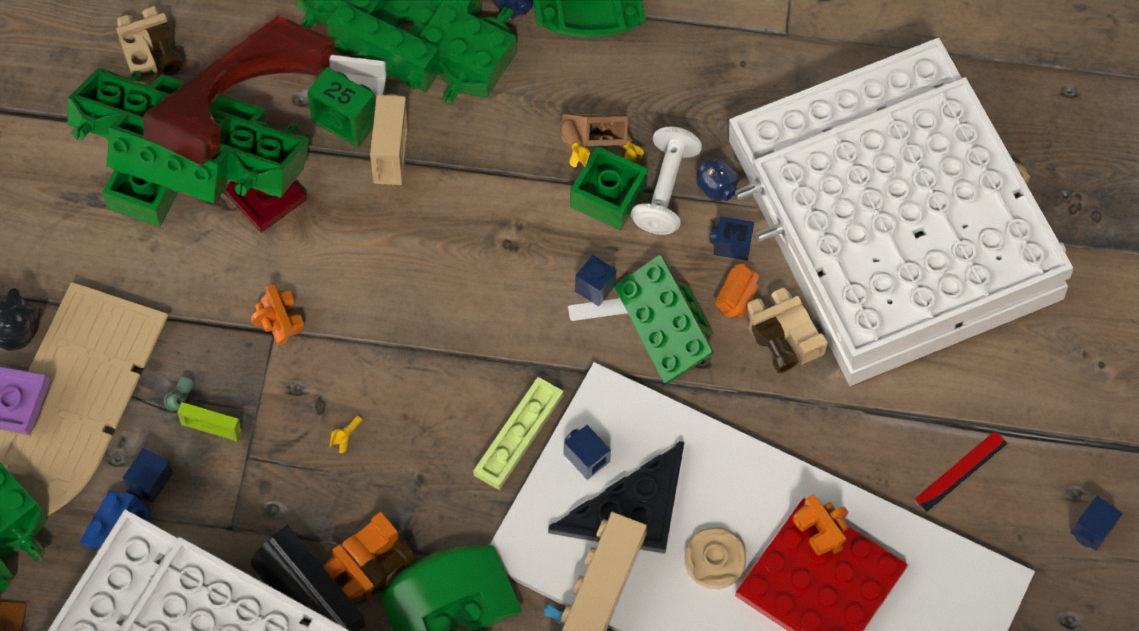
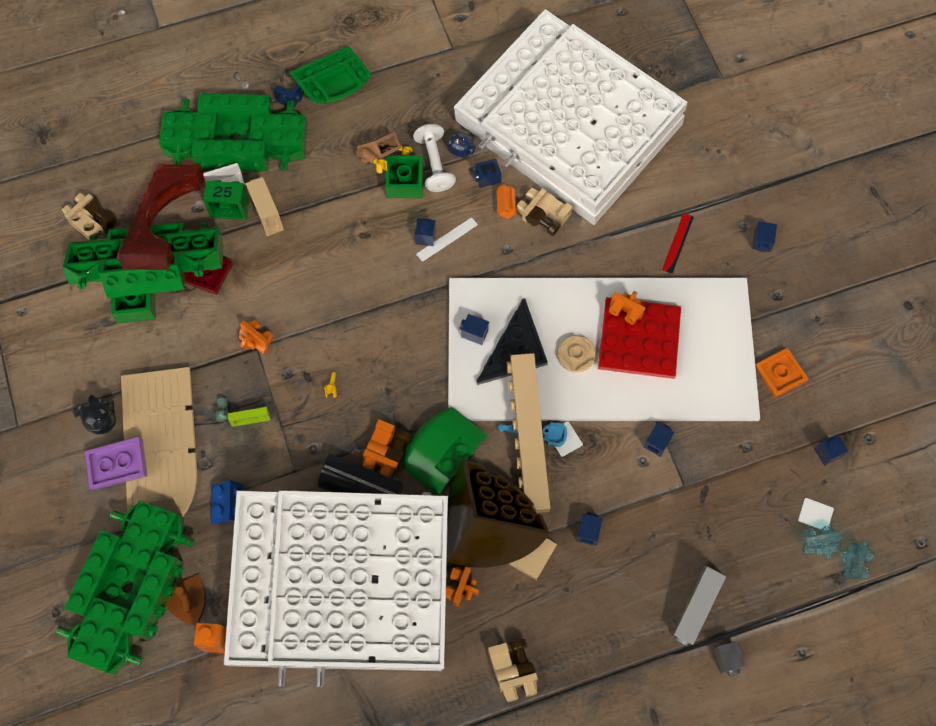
camera: 25 degrees left, 5 degrees up
(147, 475) = (230, 465): dark blue brick -> none
(518, 433) = (429, 338): yellowish green plate -> none
(666, 318) = (475, 235): green bracket -> none

